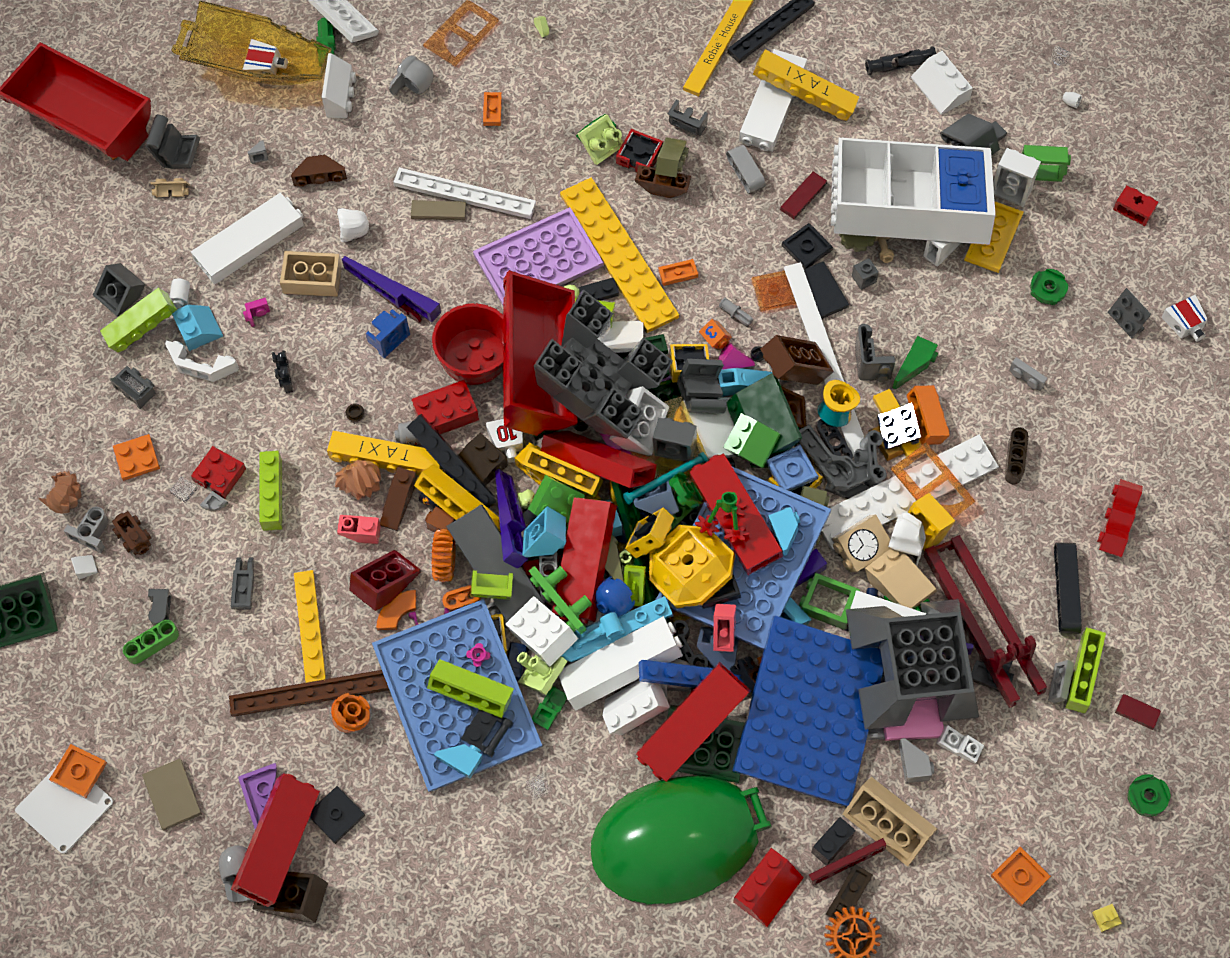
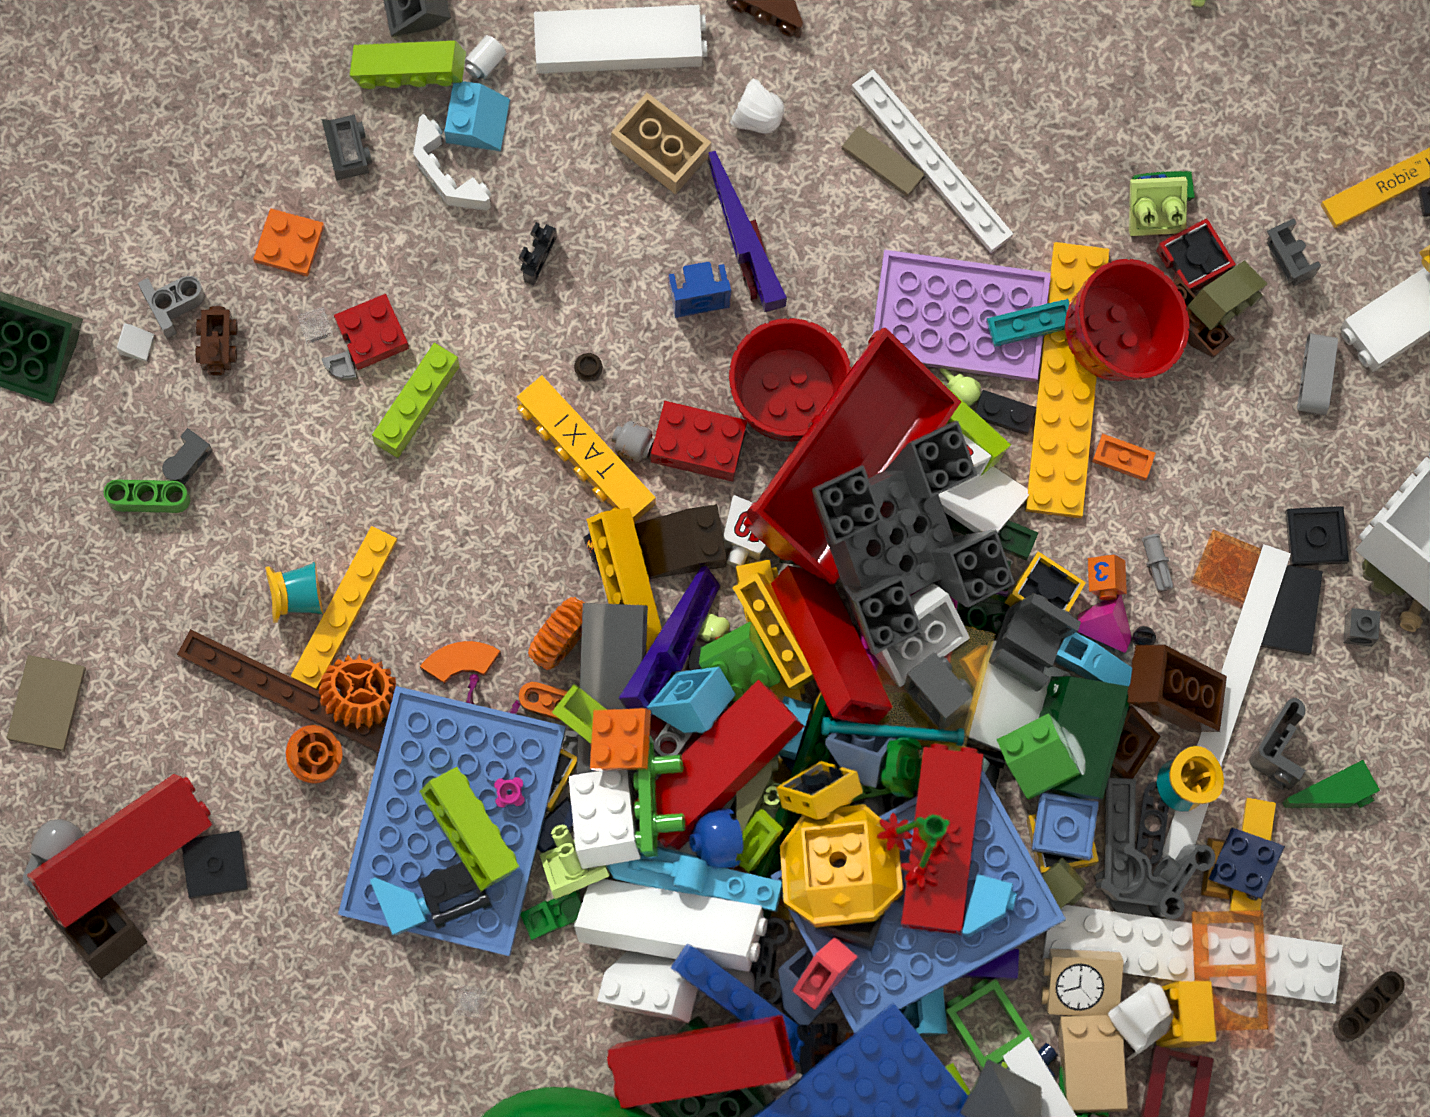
camera: 30 degrees right, 10 degrees up
(64, 494) = (171, 235): nougat hair -> none
(242, 585) = (301, 498): dark grey hinge -> none
(255, 308) = (565, 144): dark pink bracket -> none
(257, 789) = (144, 769): medium lavender wing -> none
(275, 633) = (294, 591): none -> teal hat
(351, 662) = (361, 701): none -> orange gear
(359, 479) = (530, 461): nougat hair -> none
(359, 528) = (486, 525): coral slope -> none
(383, 579) = (470, 611): dark red slope -> none
(398, 498) = (560, 518): reddish brown slope -> none
(438, 519) = (588, 583): dark orange brick -> none
(450, 460) = (653, 518): black plate -> none
(492, 108) = (1051, 65): orange plate -> none
(521, 580) = (620, 739): none -> orange plate
(578, 237) = (1028, 323): none -> teal tile
(629, 201) = (1127, 322): none -> red piece
(803, 195) = (1366, 461): dark red tile -> none
(929, 414) = (1297, 873): orange brick -> none

